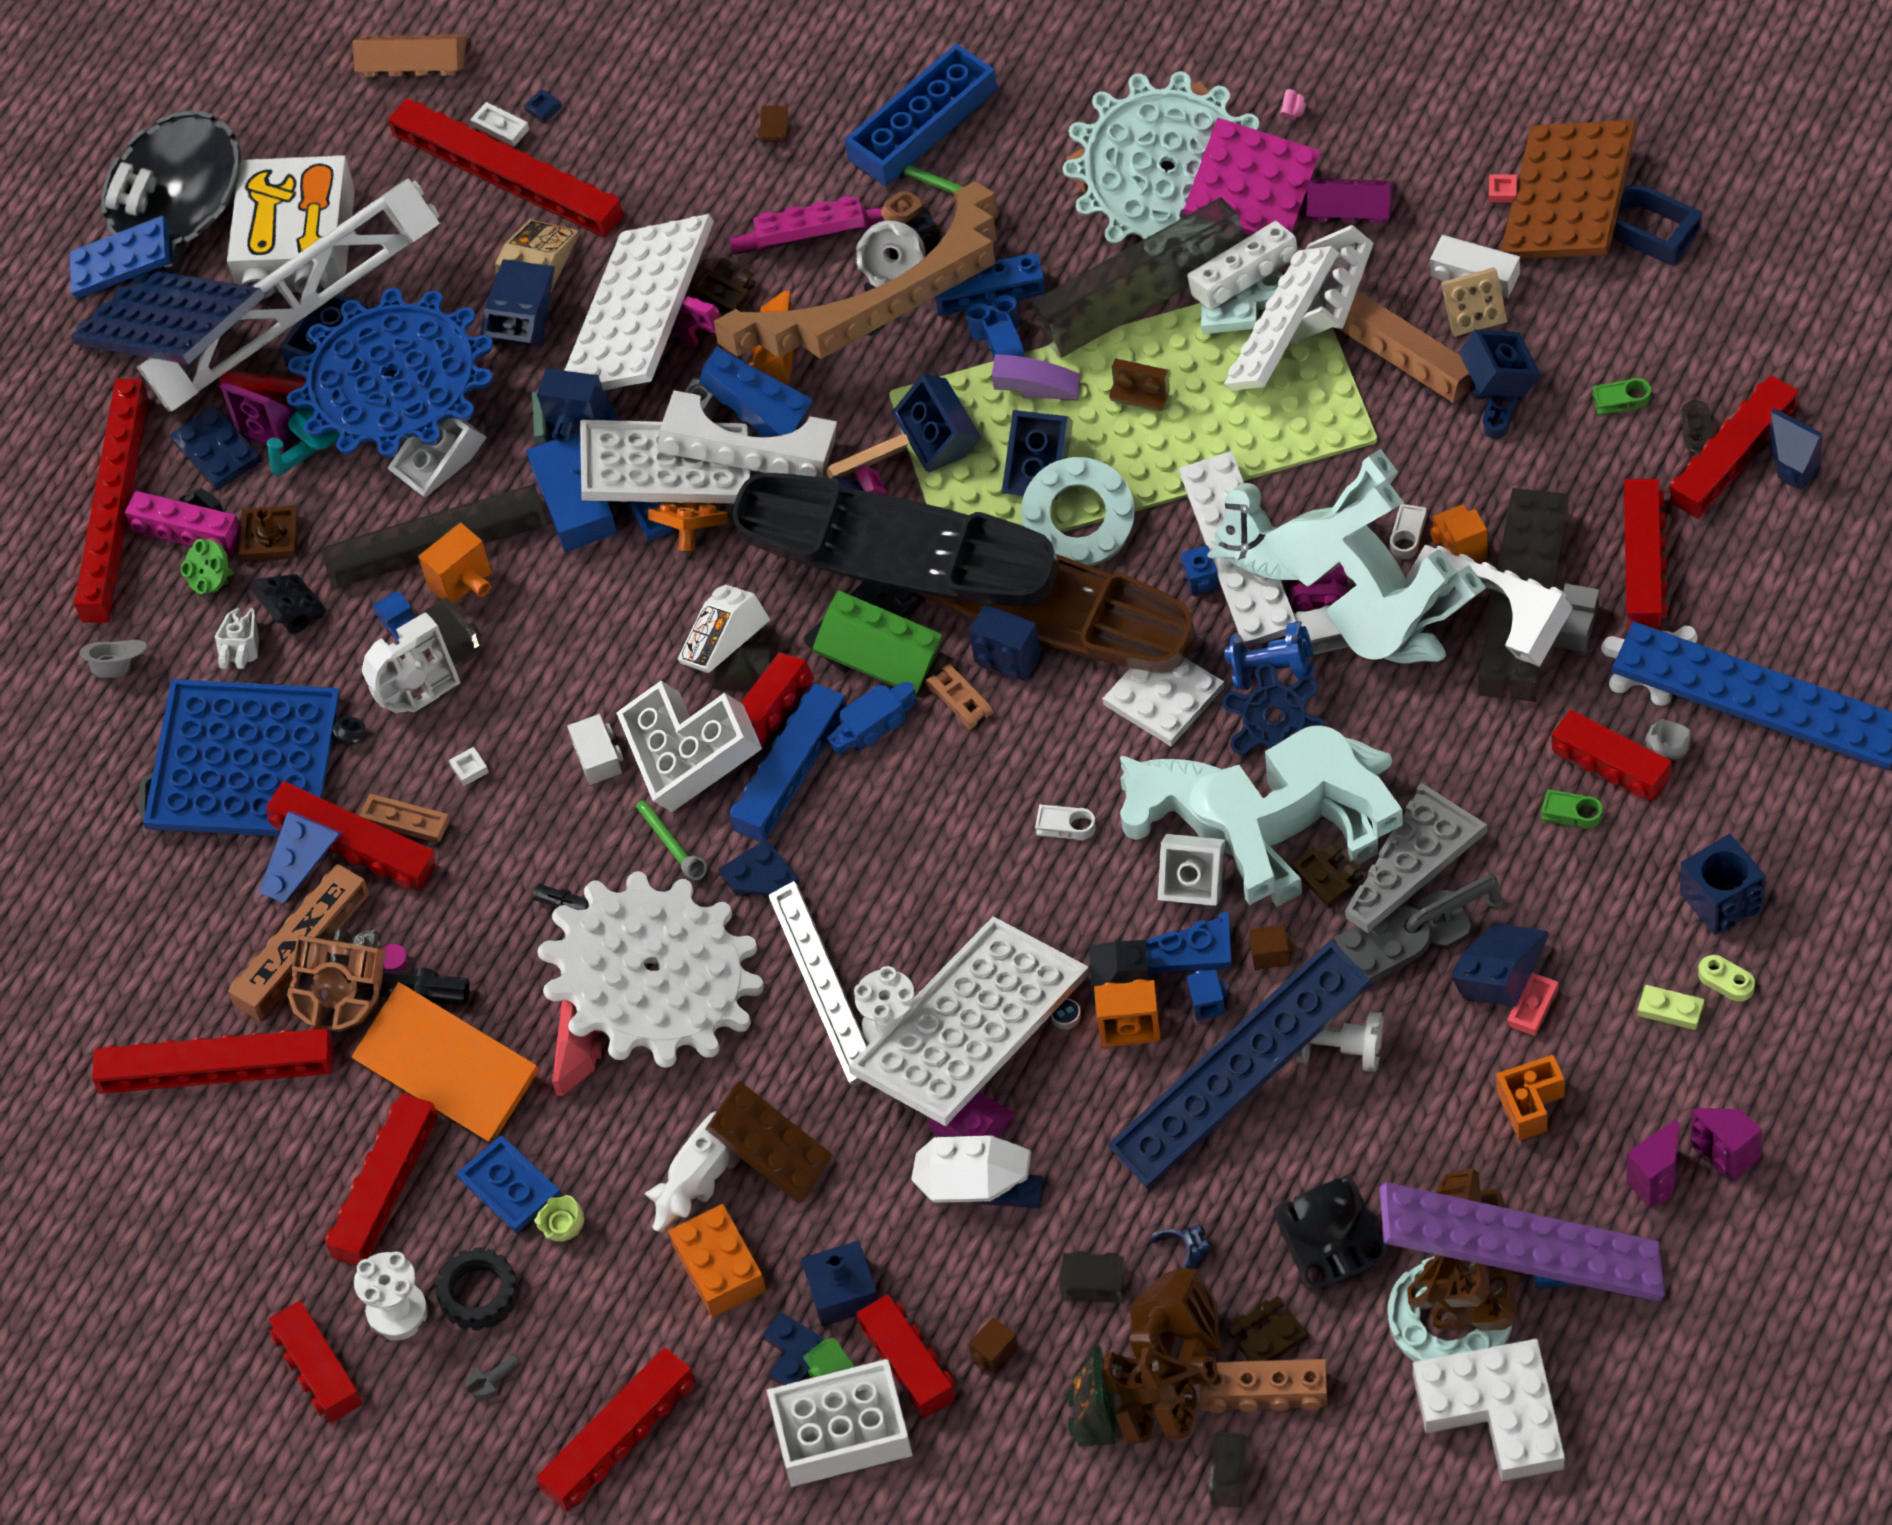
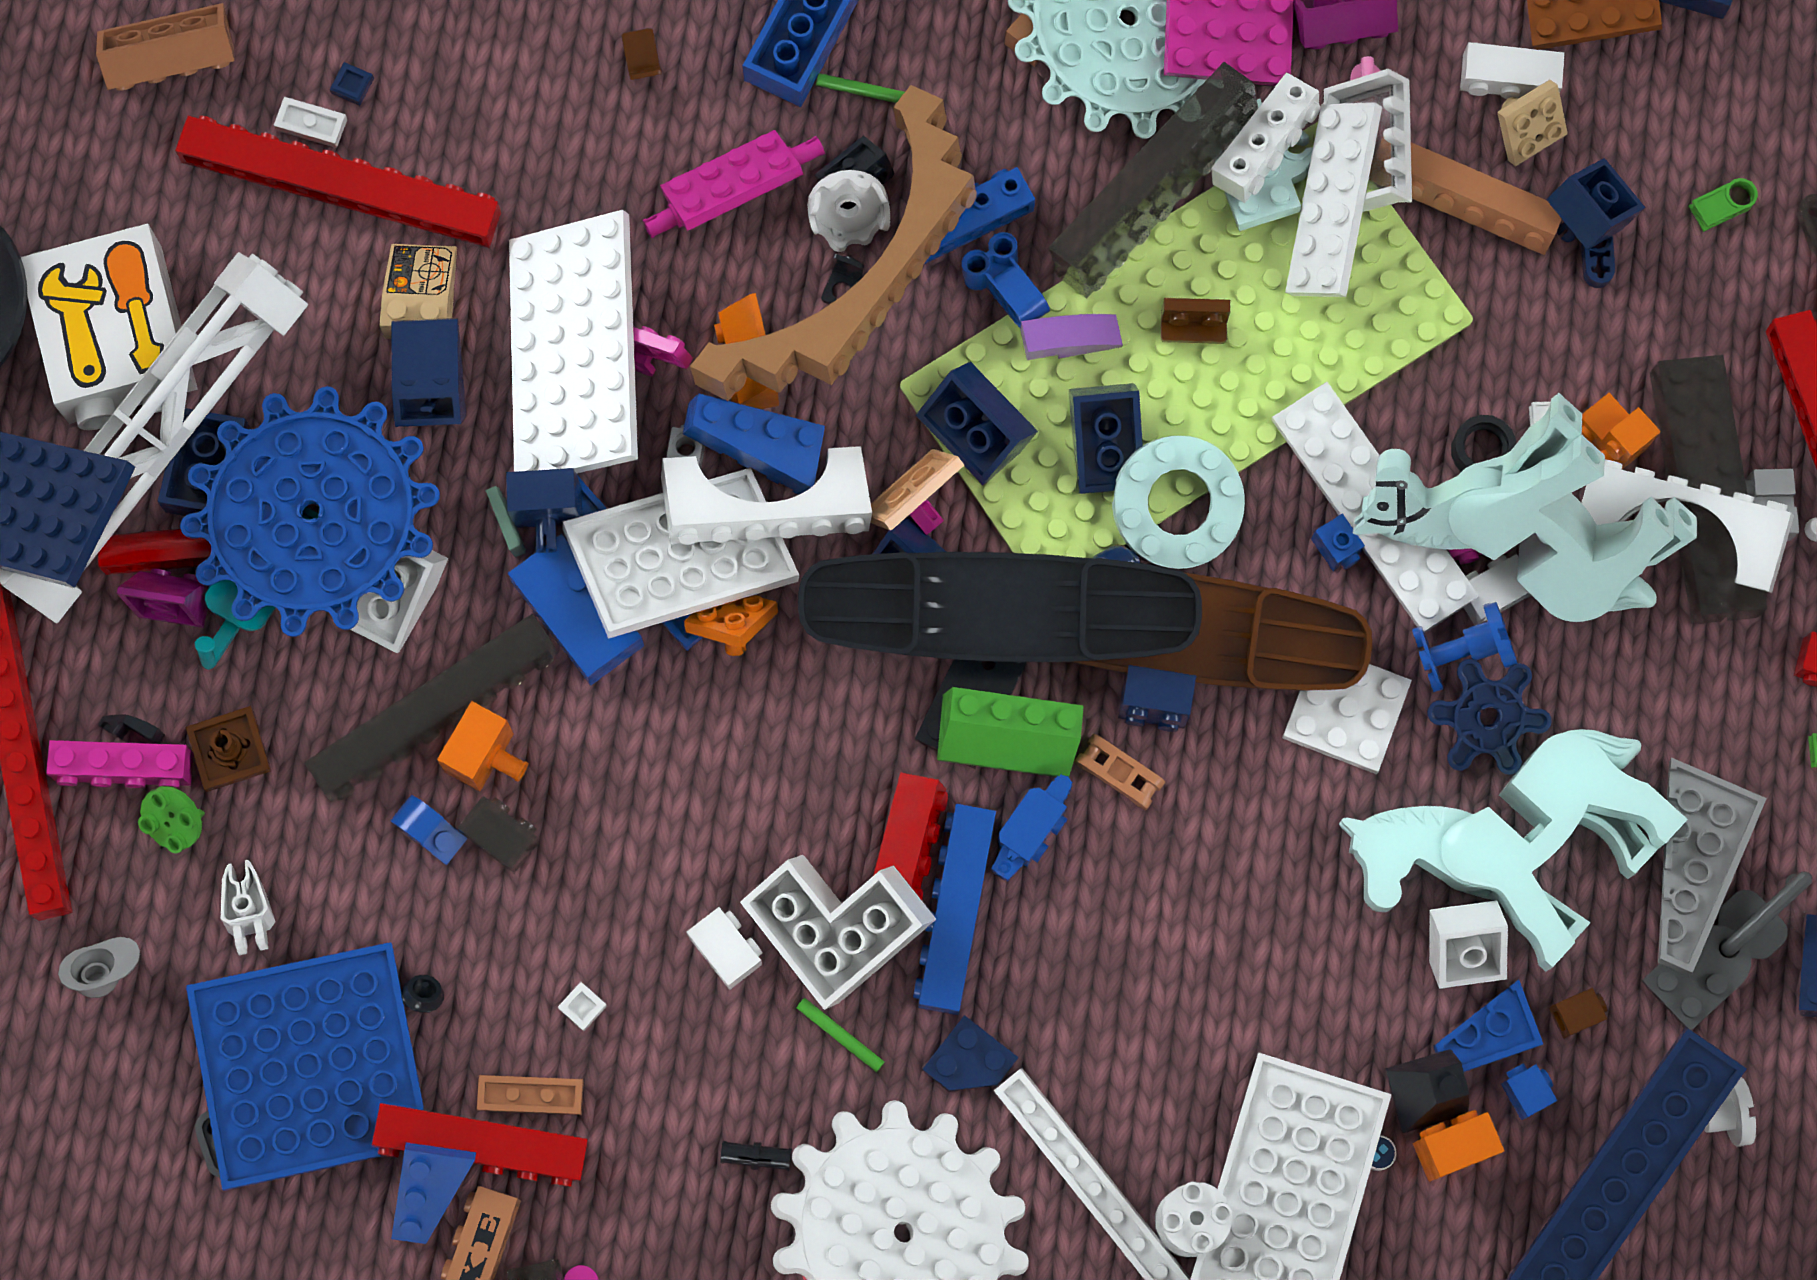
camera: 30 degrees left, 20 degrees up
(215, 448) = (118, 644): dark blue plate -> none
(288, 601) = (287, 839): black plate -> none
(394, 678) = (492, 898): white connector -> none
(694, 871) = (893, 1074): light grey hinge -> none
(719, 290) = (659, 295): dark brown plate -> none
(722, 627) = (821, 758): white slope -> none
(744, 666) = (857, 788): clear smoke slope -> none
(901, 207) = (834, 138): nougat plate -> none
(1057, 820) = (1285, 908): white piece -> none
(1322, 878) = (1604, 906): dark brown plate -> none

